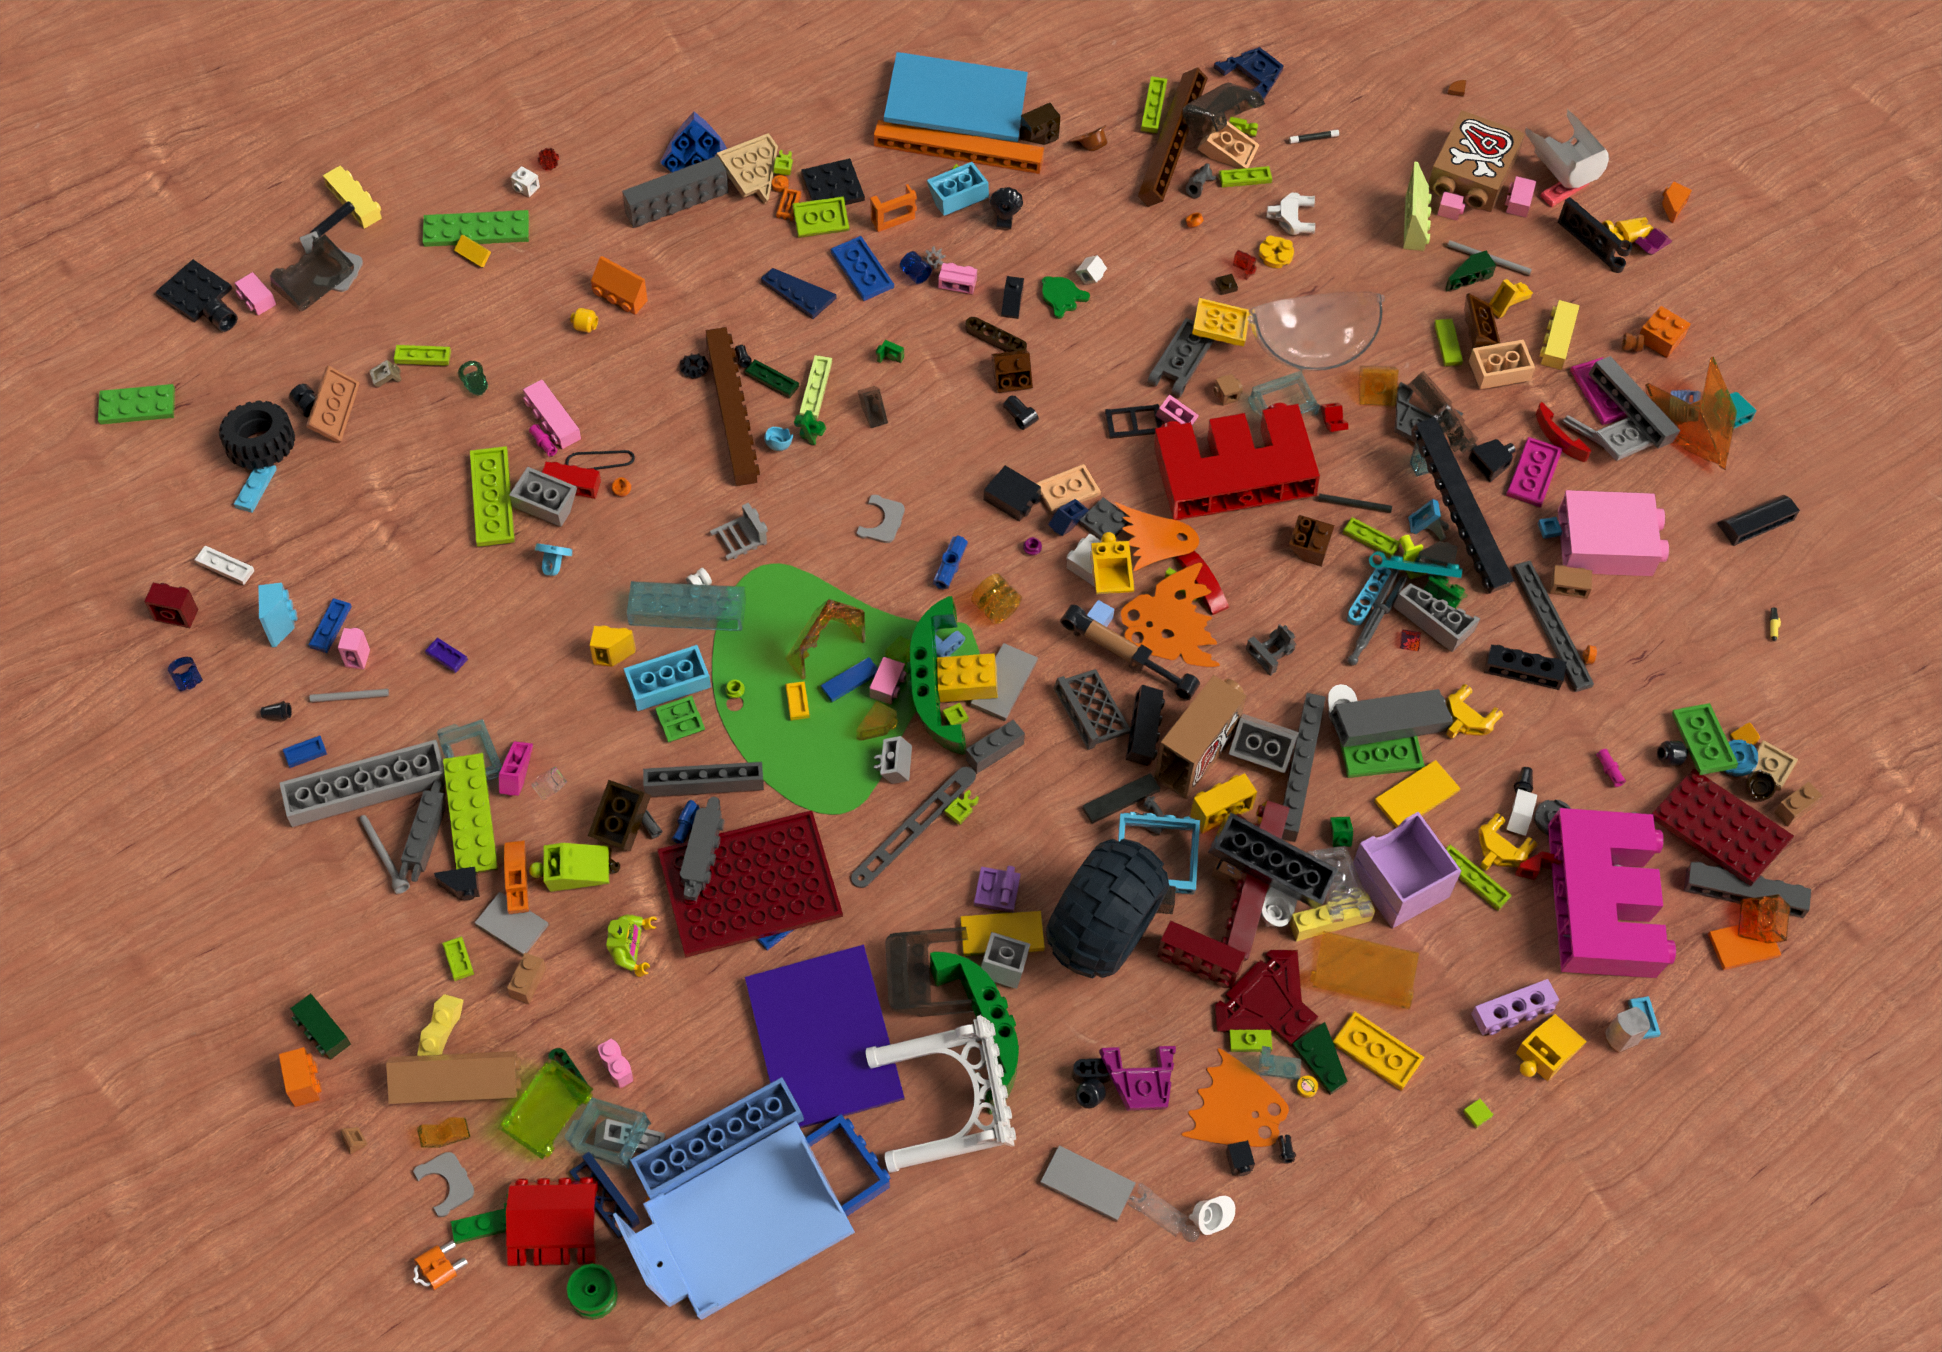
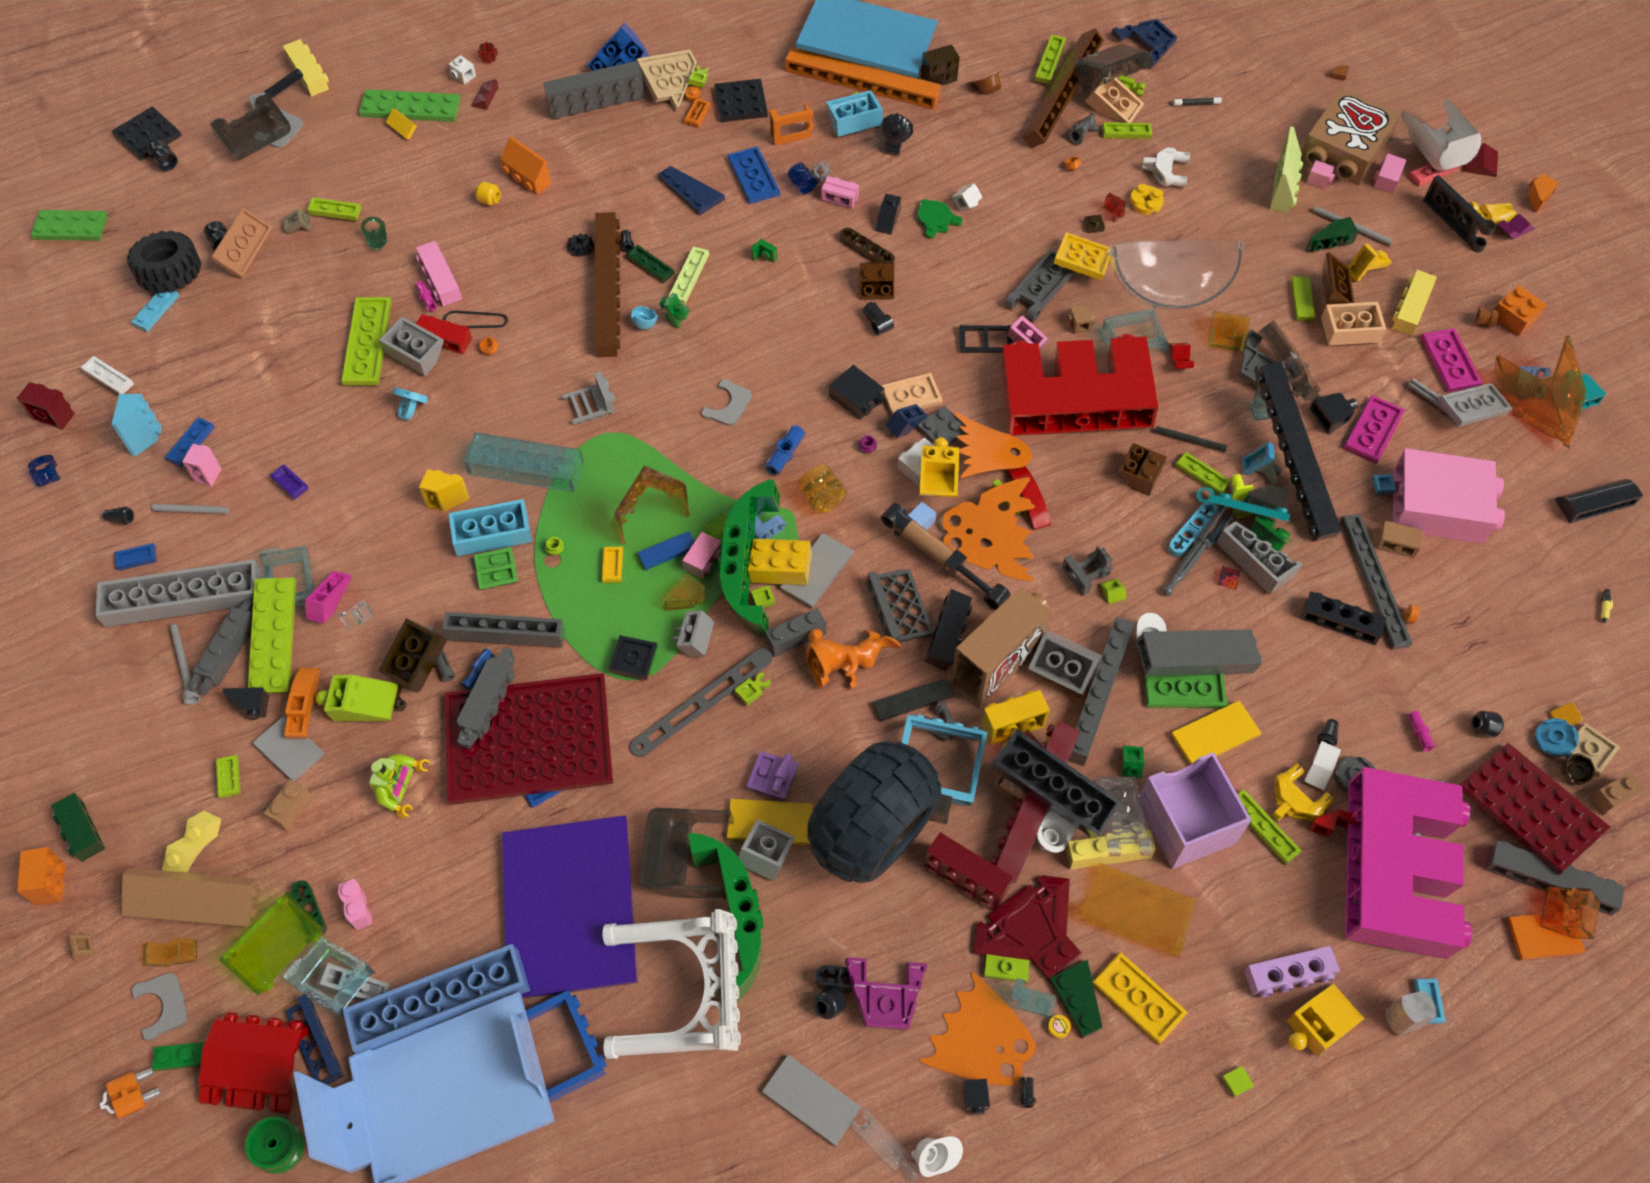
camera: 10 degrees right, 0 degrees up
(255, 294) = (198, 141): bright pink brick -> none
(555, 207) = (486, 94): none -> dark red slope
(700, 578) = (542, 437): white wheel -> none
(820, 217) = (723, 126): lime tile -> none
(838, 791) = (633, 657): none -> black plate
(873, 406) = (739, 298): clear smoke slope -> none
(1031, 765) = (829, 656): none -> orange animal
(1300, 667) = (1113, 591): none -> lime slope
(1466, 719) = (1276, 663): yellow connector -> none
(1558, 438) = (1417, 411): red slope -> none
(1615, 174) = (1484, 162): none -> dark red slope
(1634, 402) = (1482, 373): dark grey brick -> none
(1704, 739) = (1523, 714): bright green plate -> none

